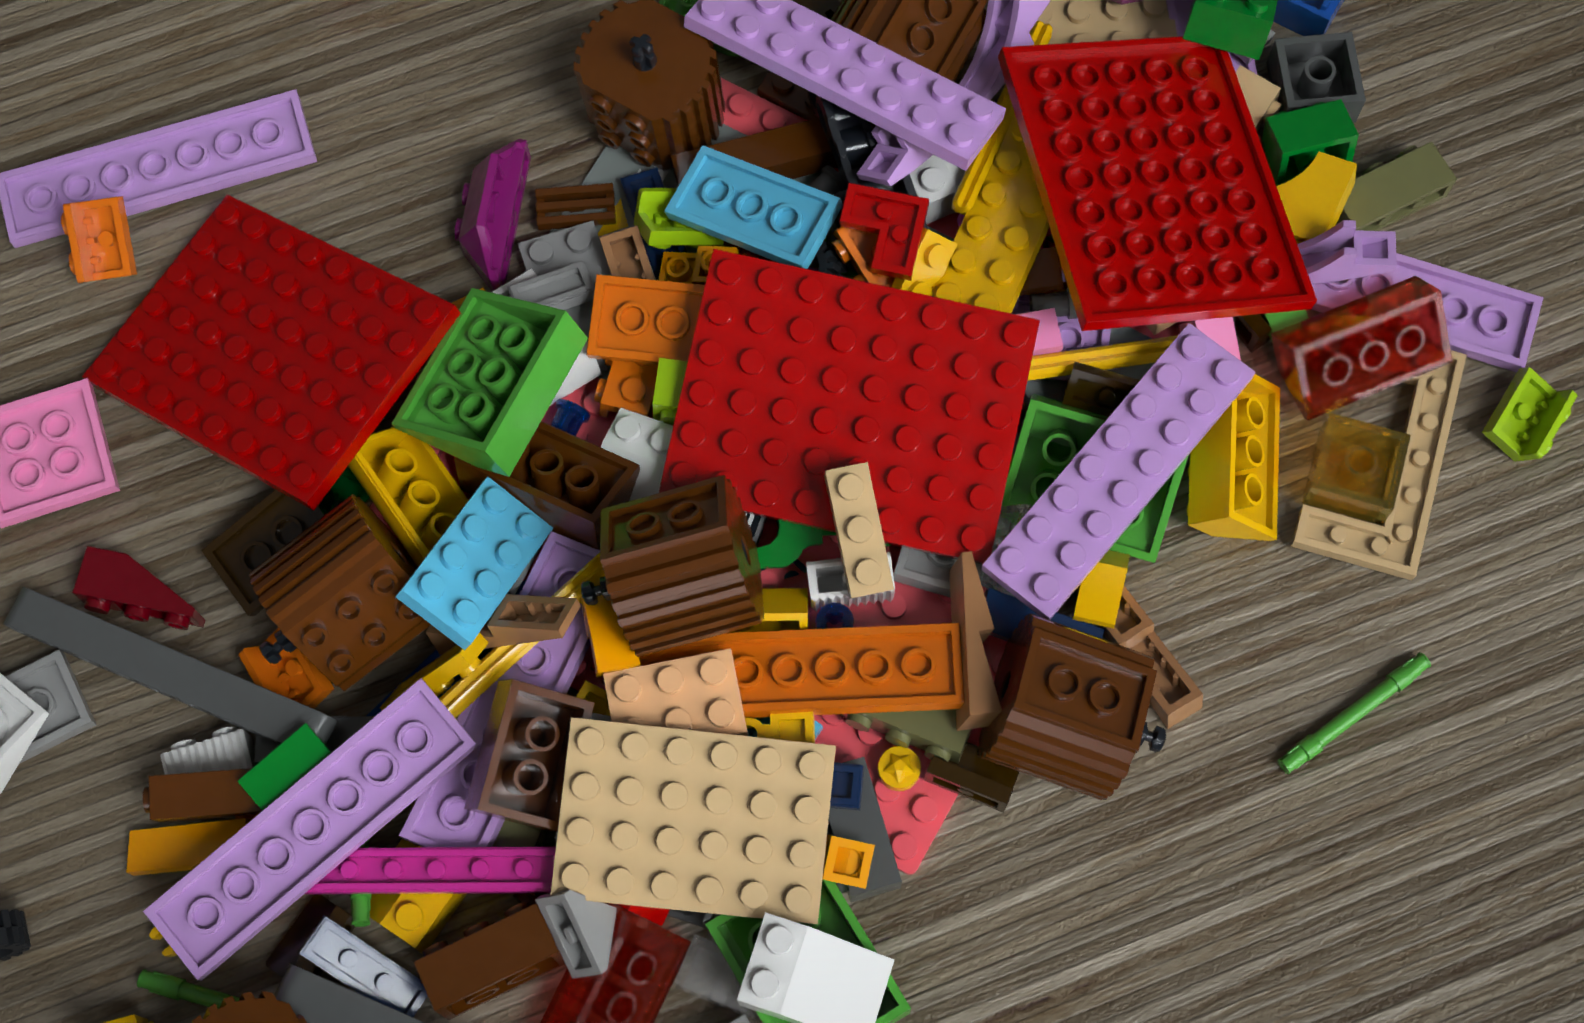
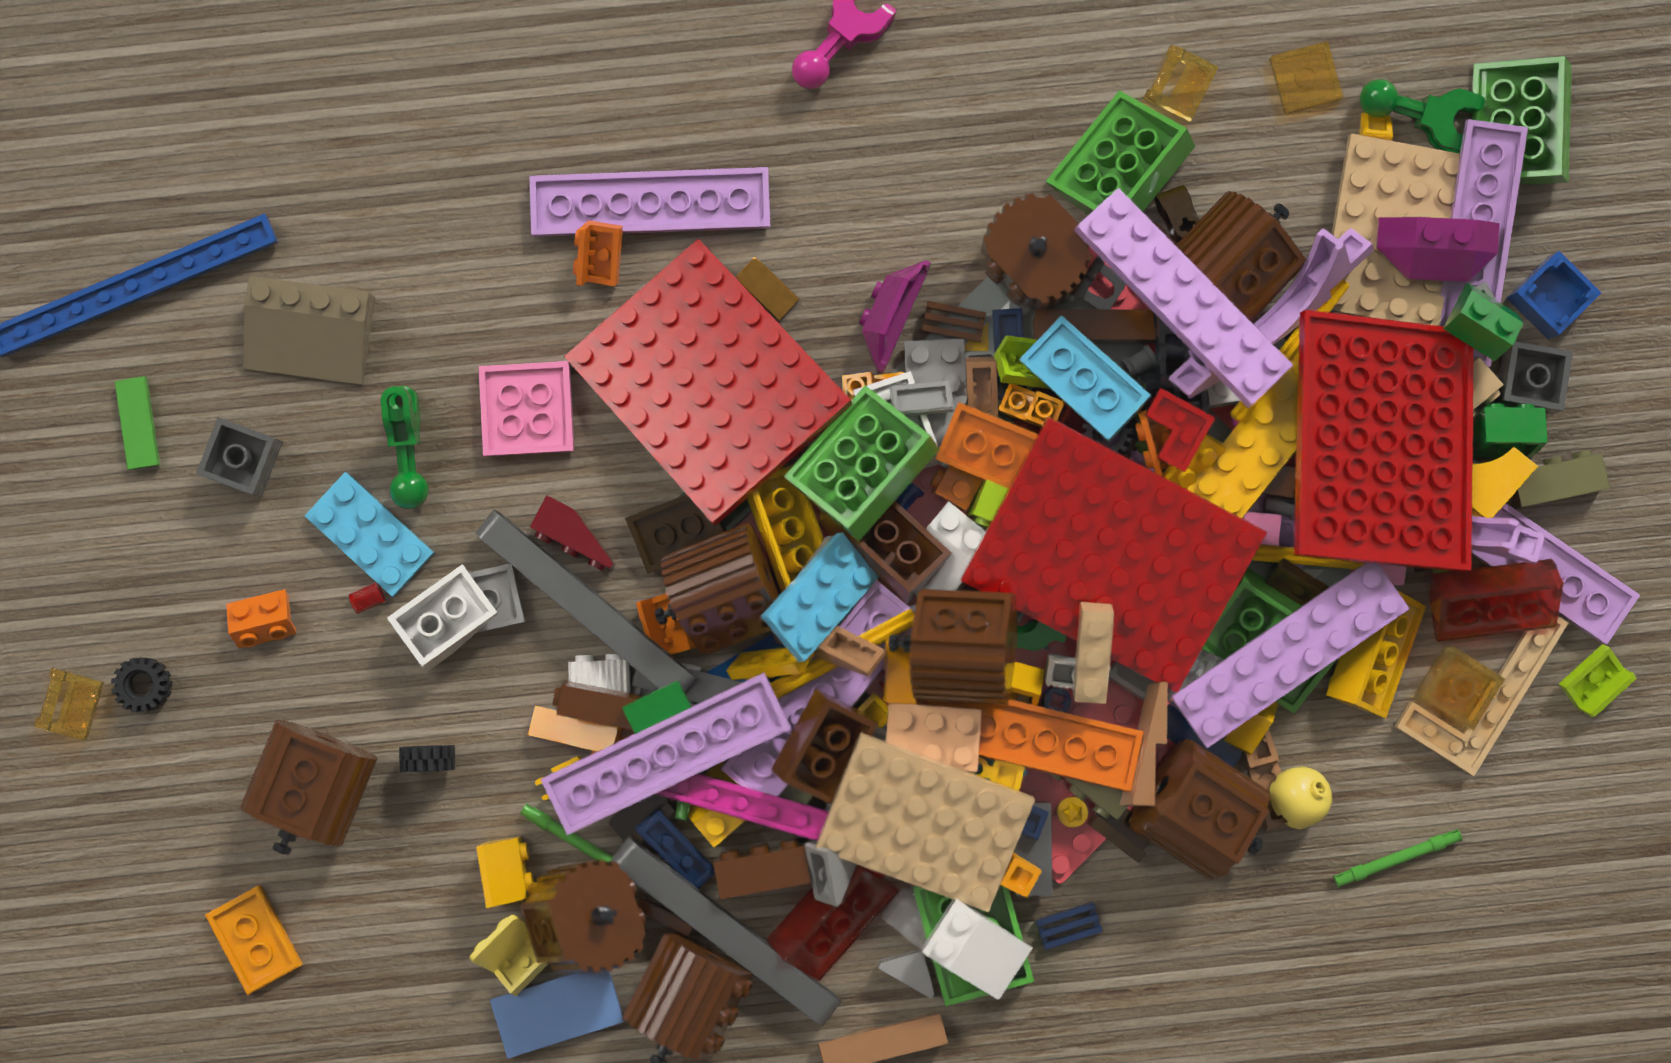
camera: 10 degrees right, 15 degrees up
(328, 225) = (767, 288): none -> pearl gold slope
(731, 94) = (1100, 303): none -> dark grey piece
(970, 907) = (1073, 924): none -> dark blue tile
(1199, 661) = (1301, 796): none -> light yellow cylinder

